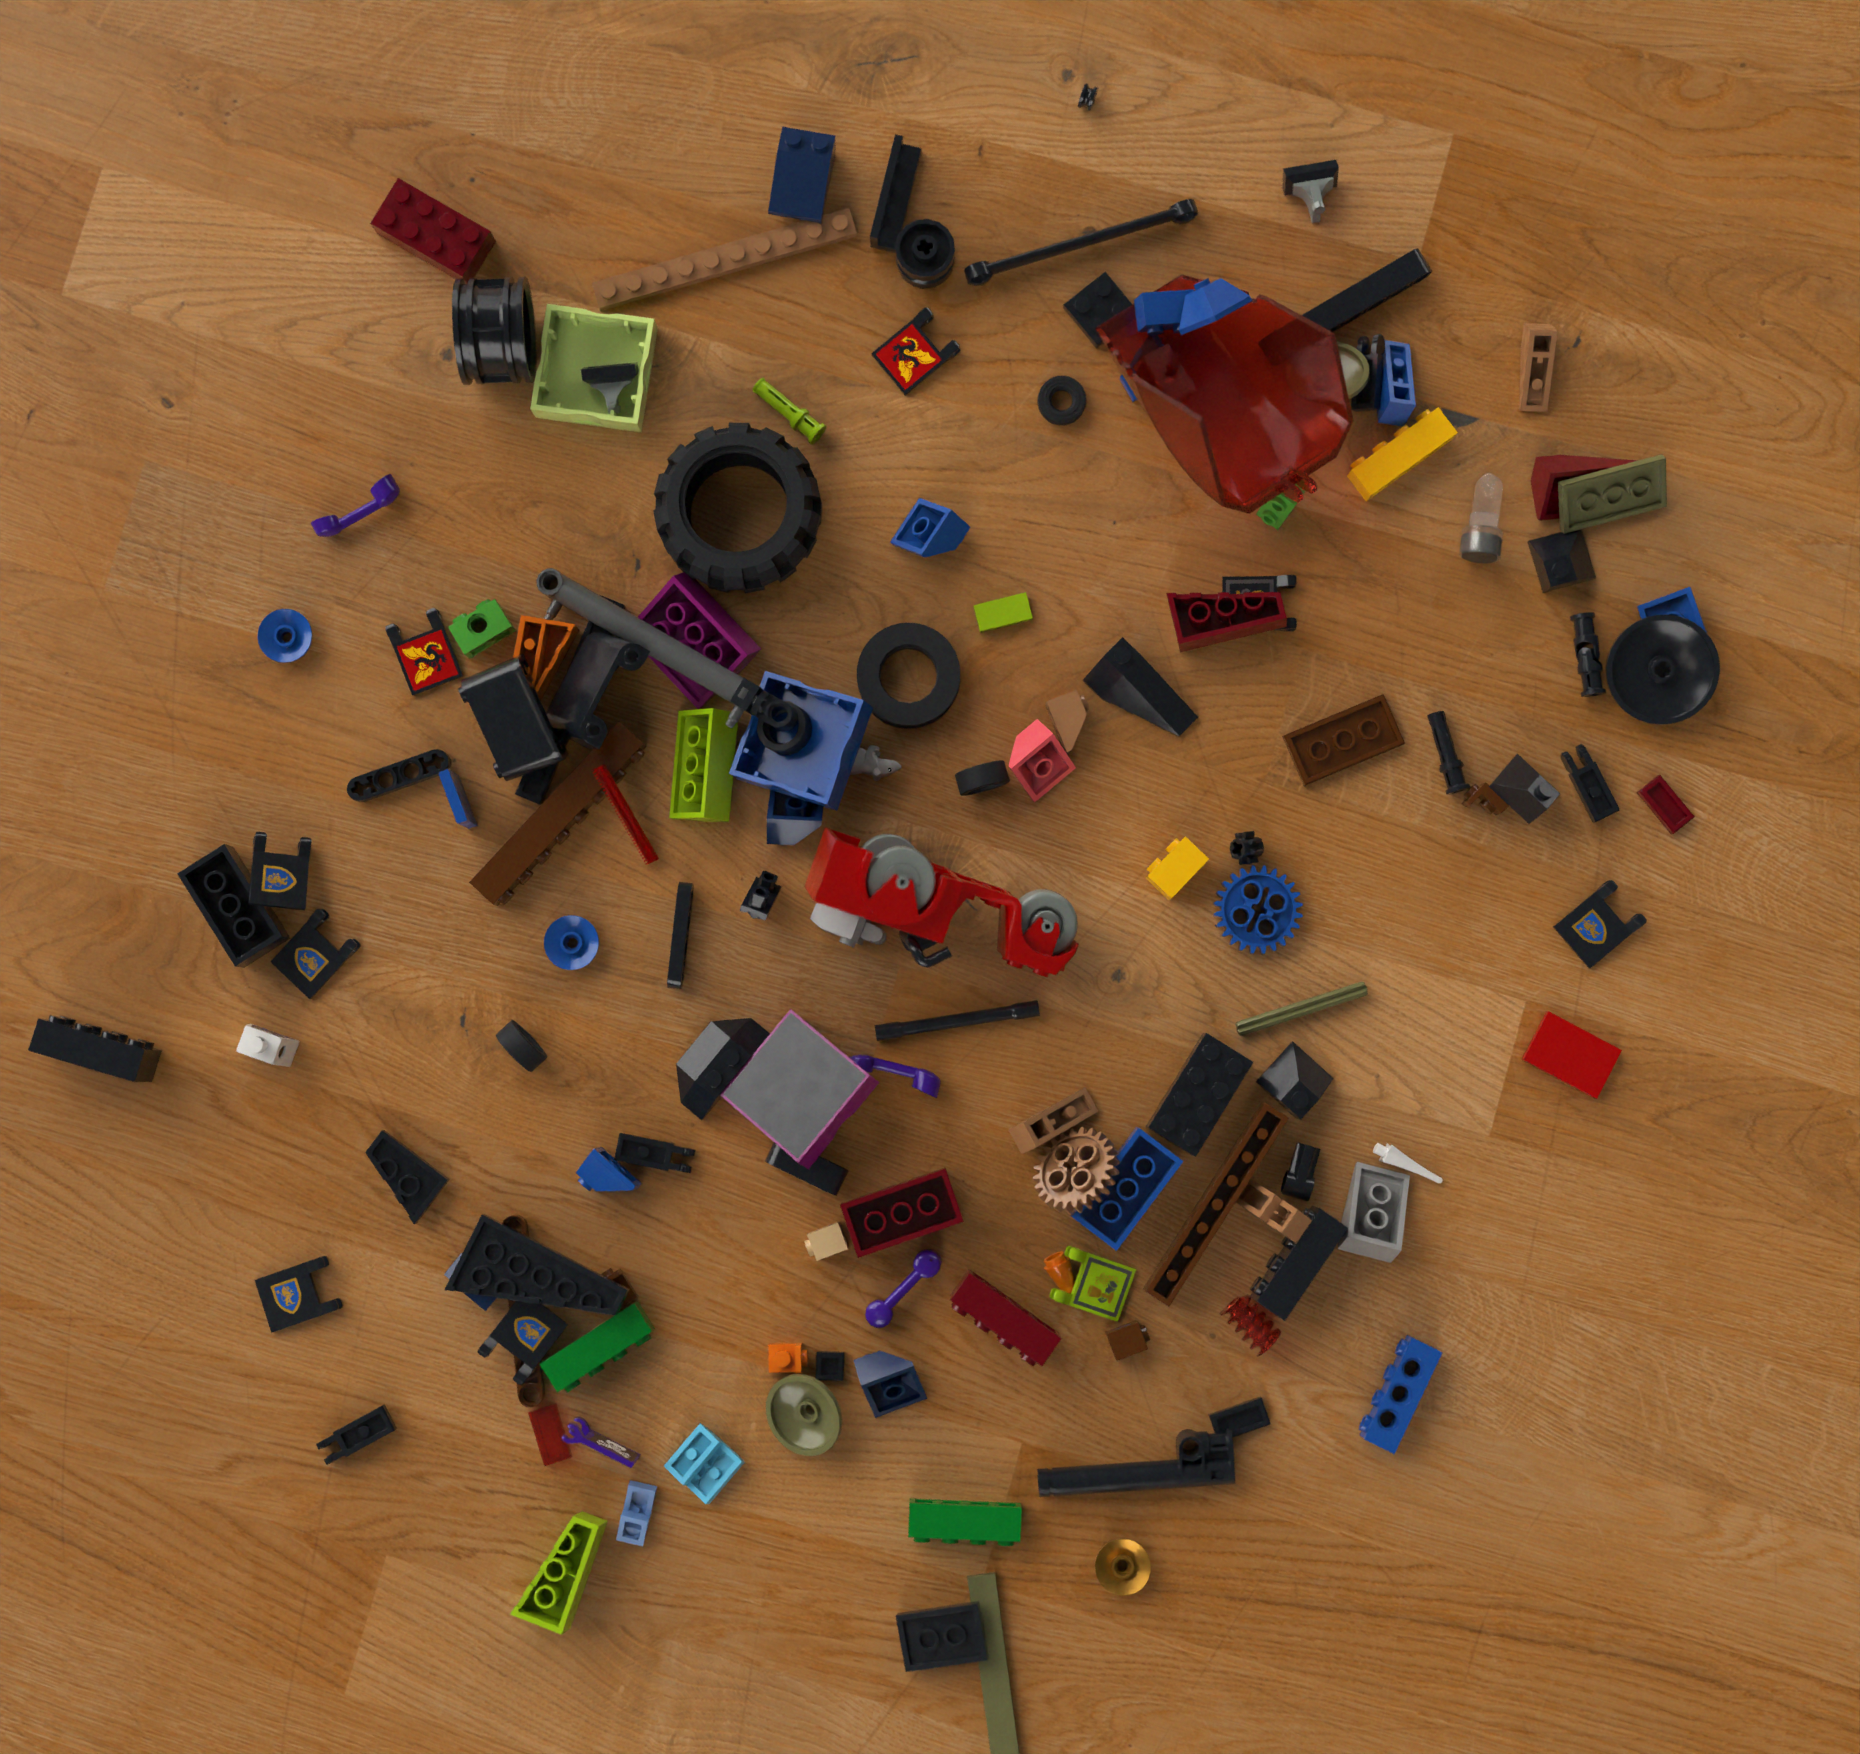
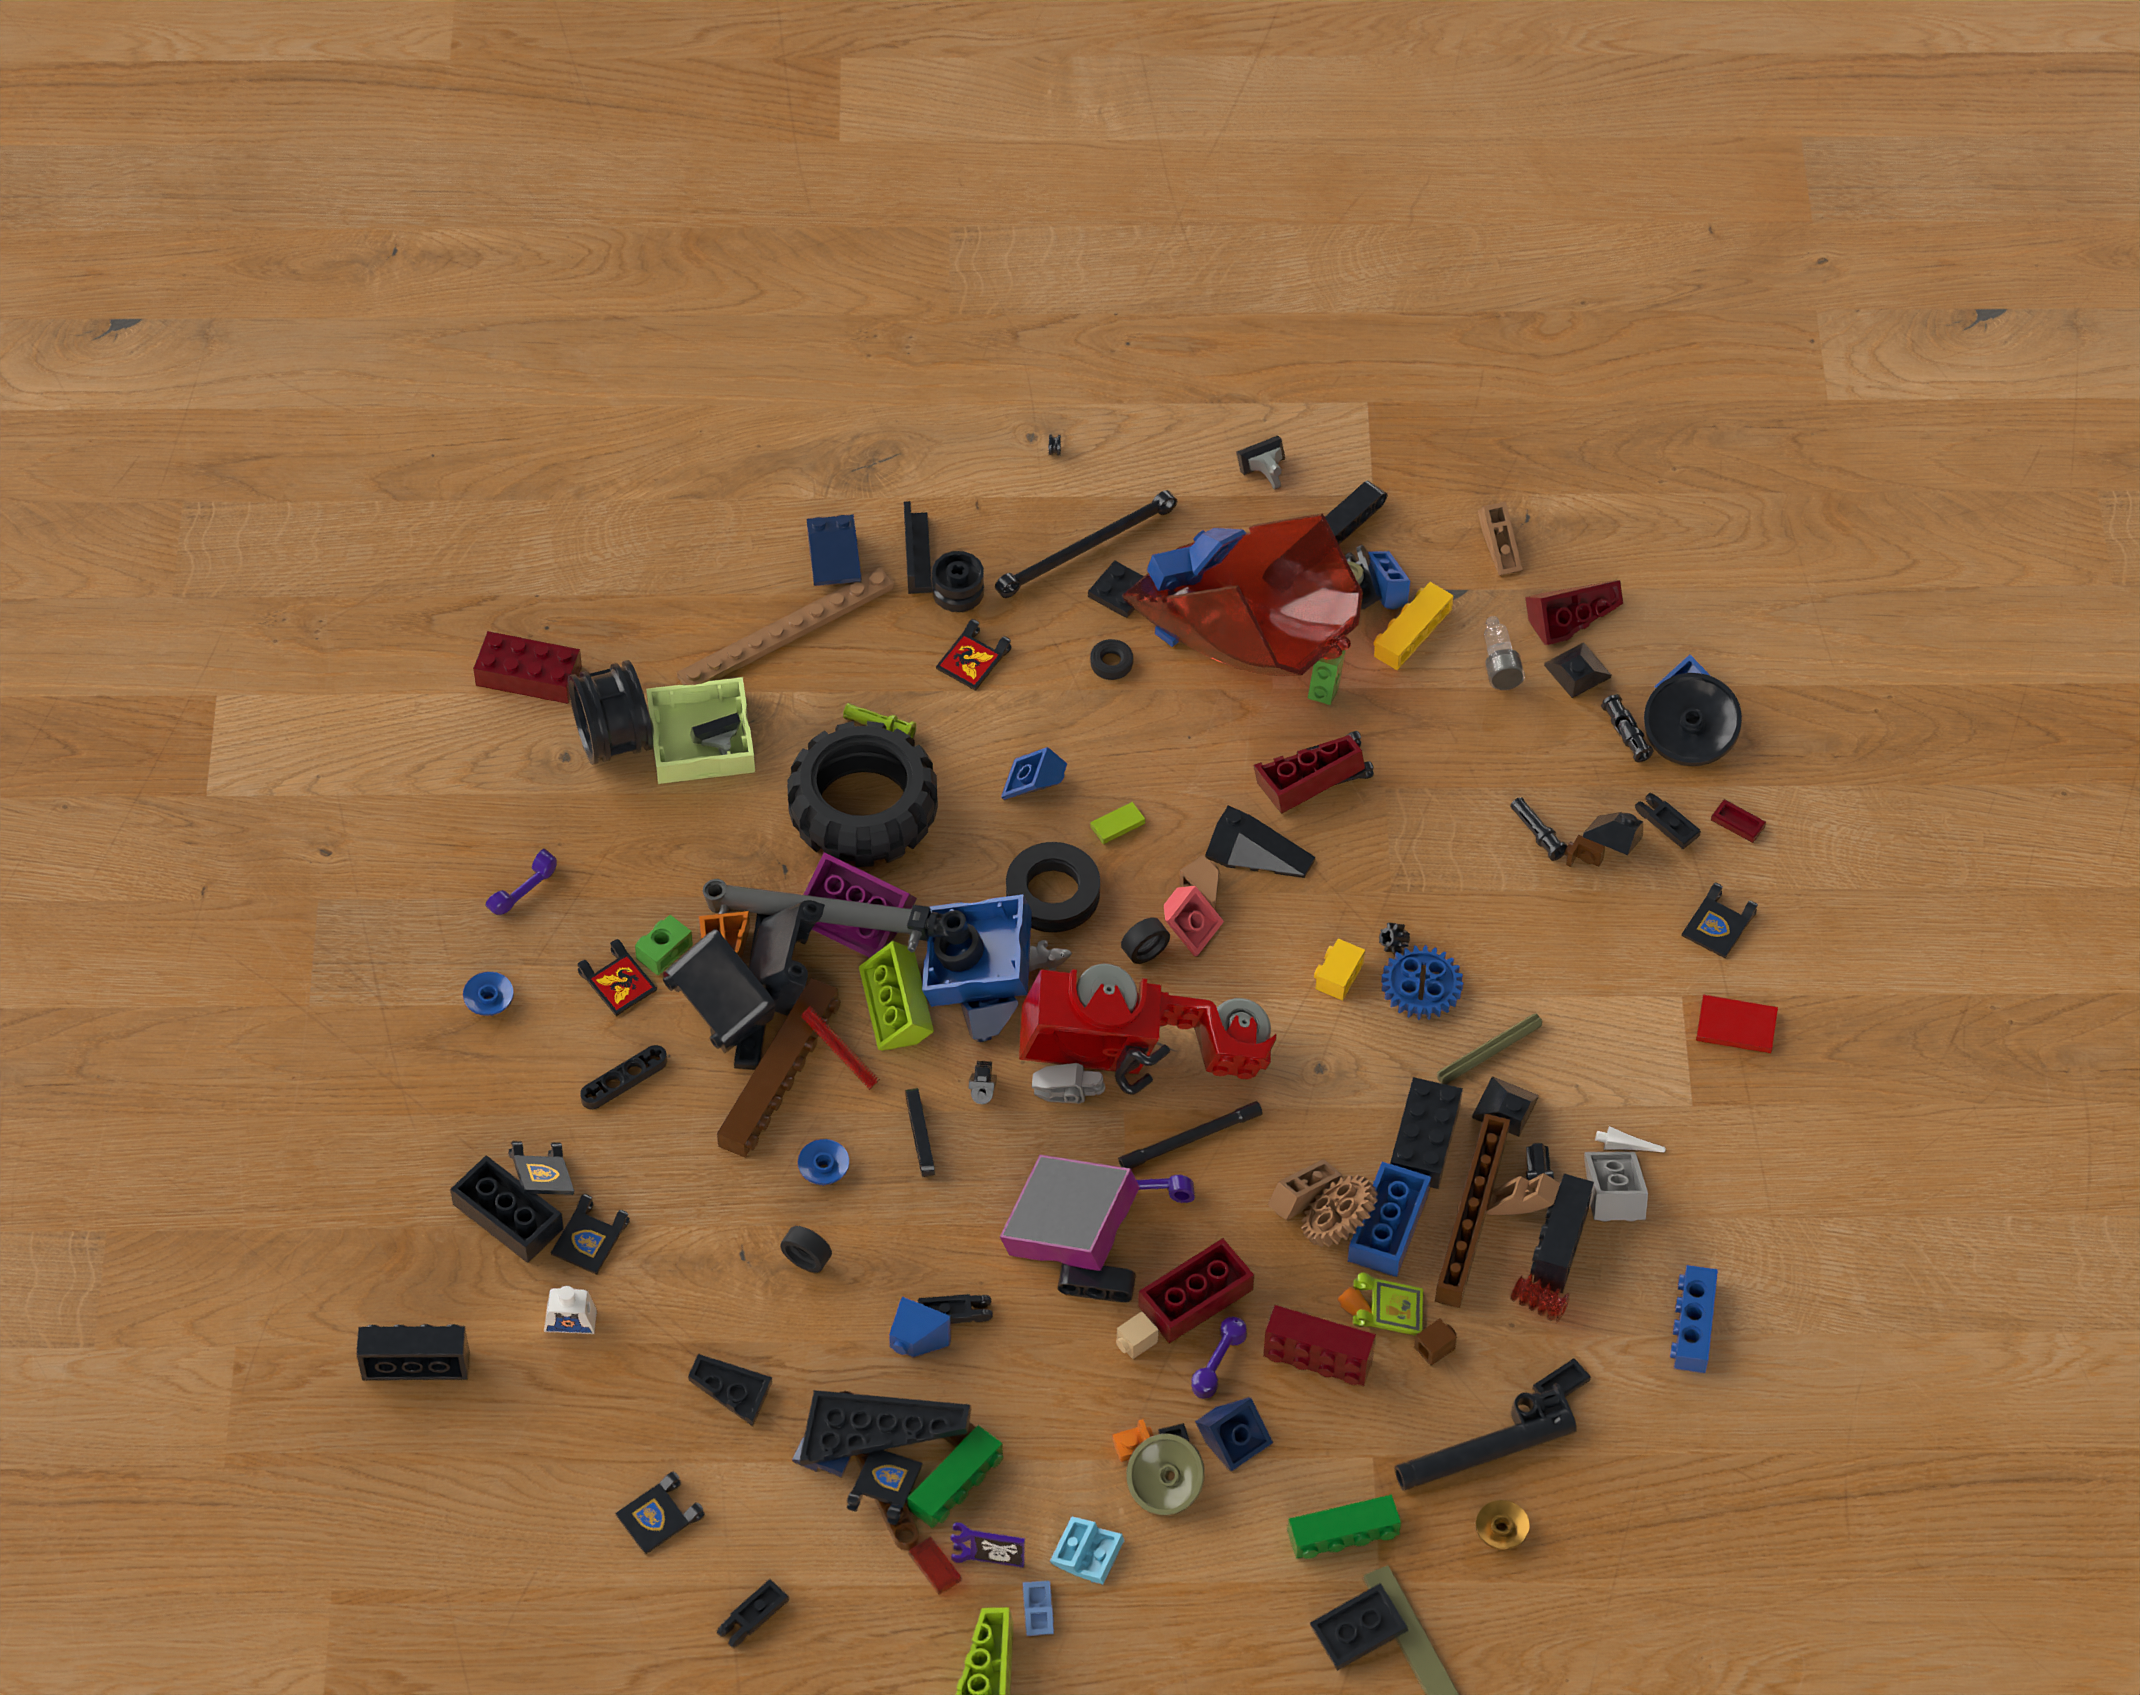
camera: 20 degrees left, 30 degrees down
(457, 798) = (686, 1072): blue tile -> none
(715, 1061) = (981, 1224): black wedge -> none
(1343, 740) = (1446, 843): reddish brown tile -> none
(1612, 494) = (1599, 608): olive tile -> none

